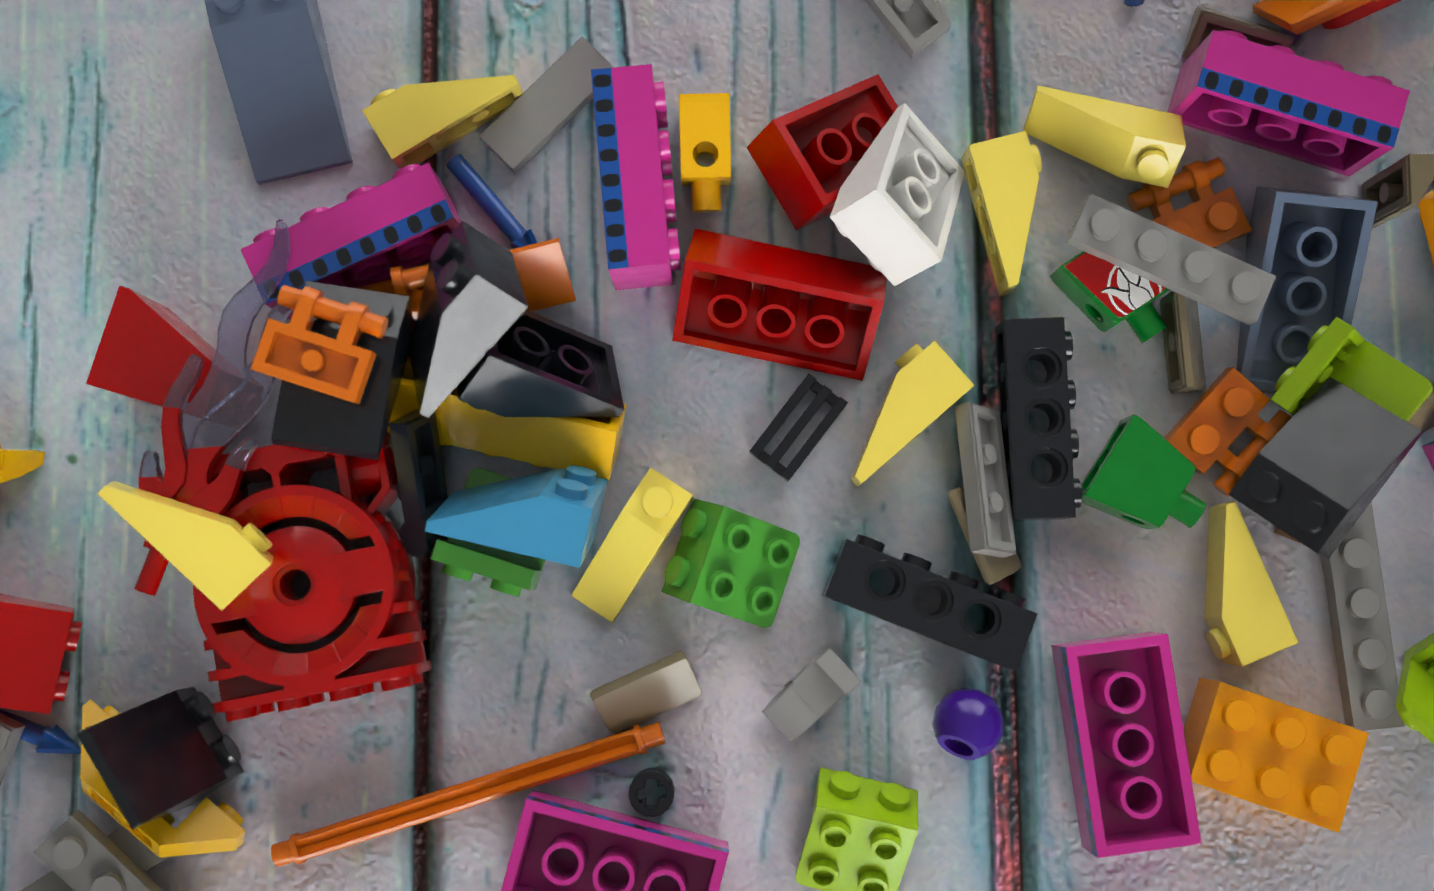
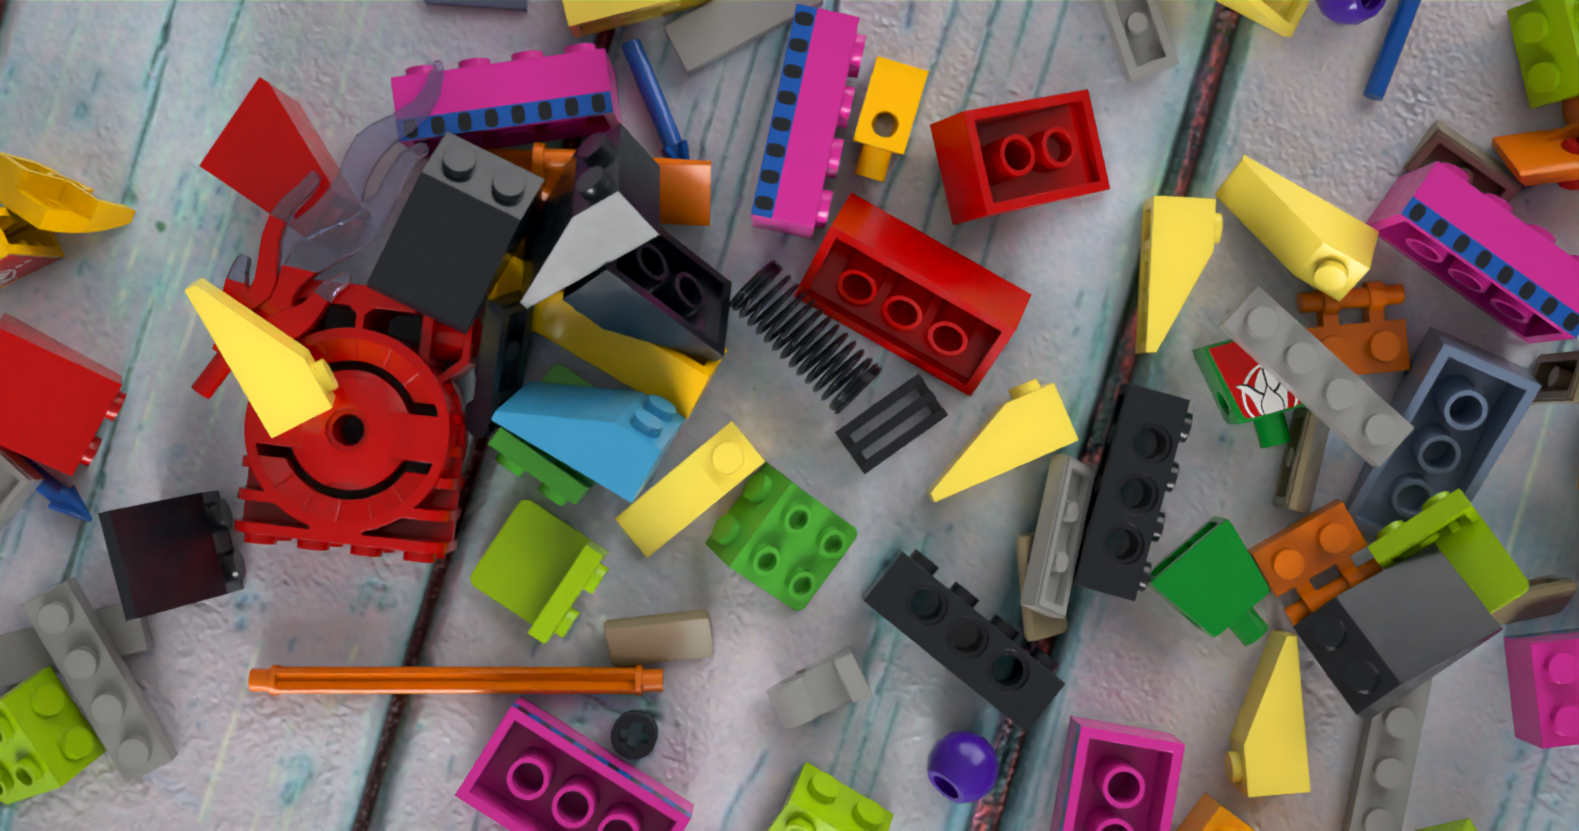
camera: 20 degrees right, 5 degrees up
(203, 831) = (191, 635): yellow slope -> none
(313, 359) = (432, 219): orange plate -> none
(515, 664) = (540, 569): none -> lime bracket
(748, 406) = (855, 386): none -> black piece
(900, 199) = (1067, 229): white slope -> none

